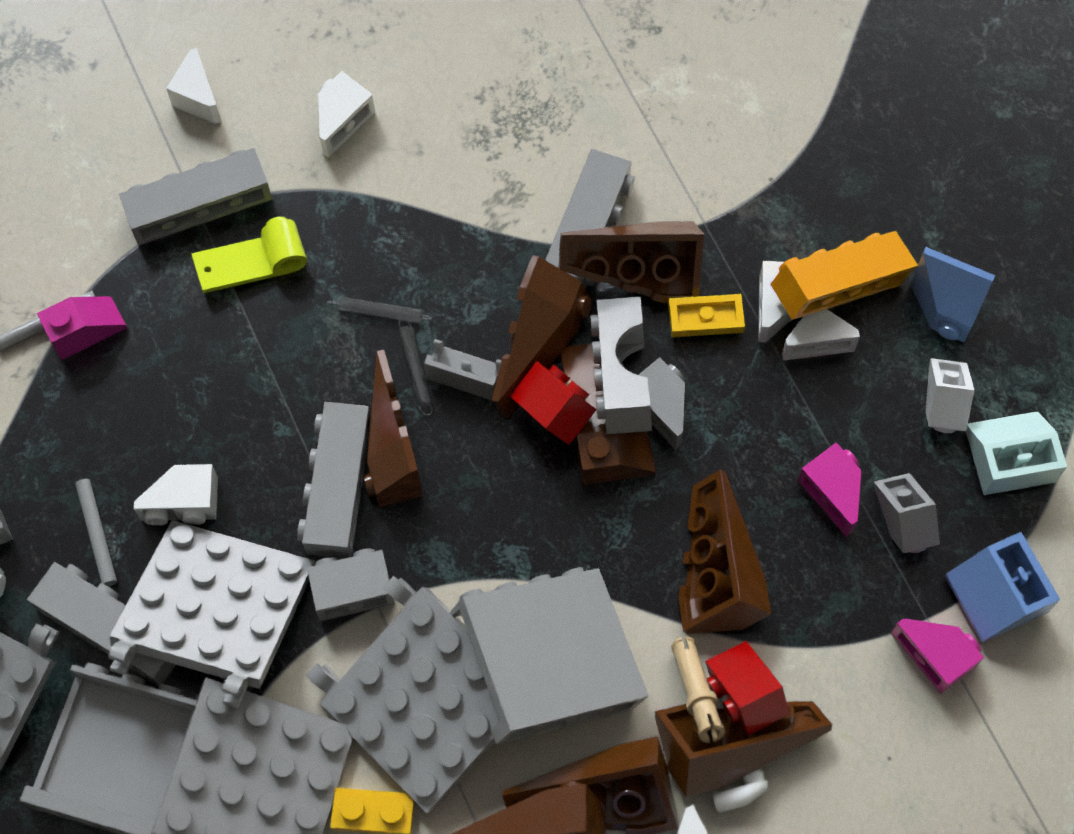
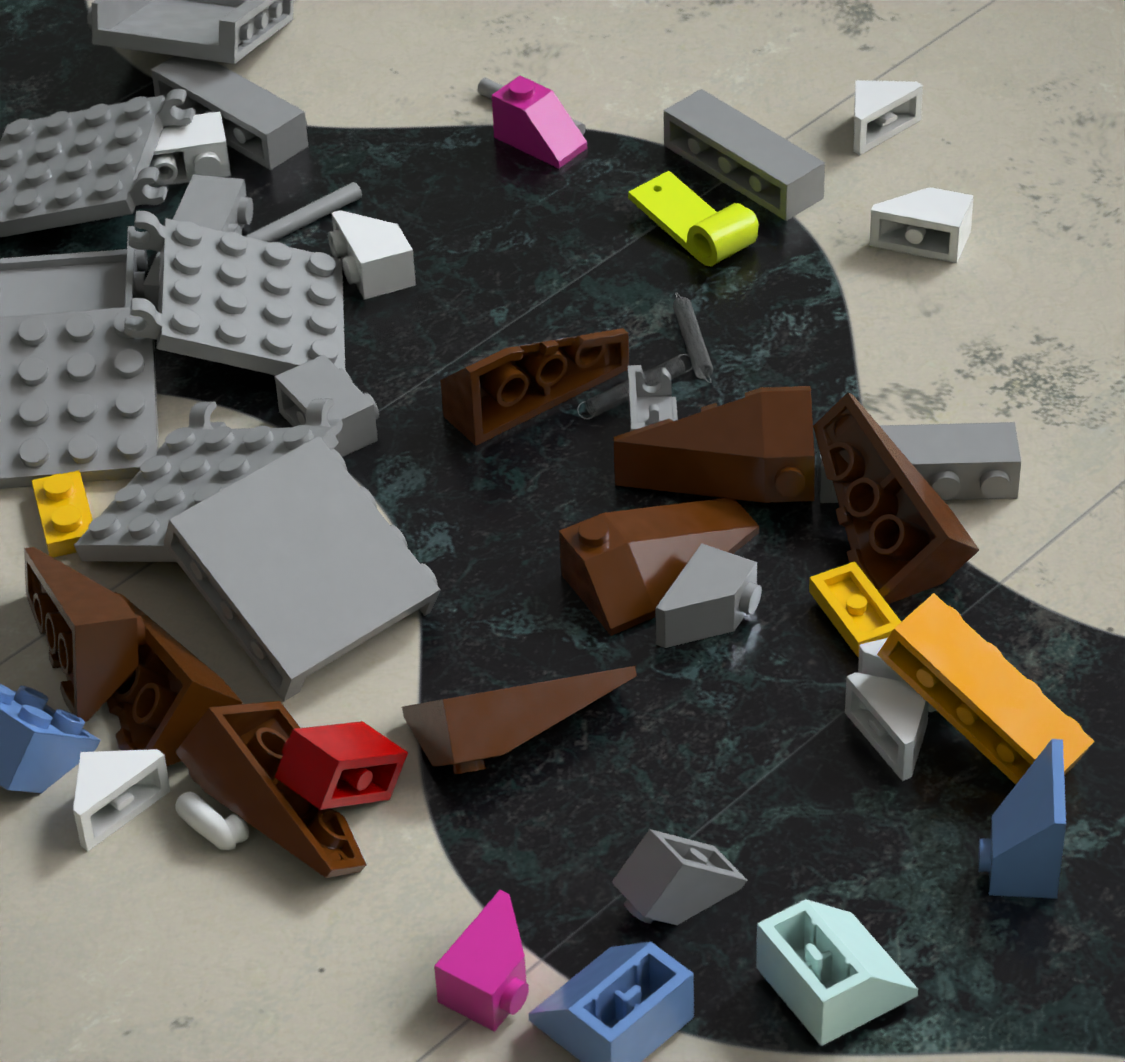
camera: 70 degrees right, 25 degrees down
(336, 480) = (410, 364): light grey brick -> none
(553, 402) = (636, 482): red brick -> none
(625, 394) = (772, 522): arch -> none
(700, 700) = (278, 722): tan pin -> none
(835, 485) = (678, 794): dark pink slope -> none
(948, 395) = (882, 876): white slope -> none

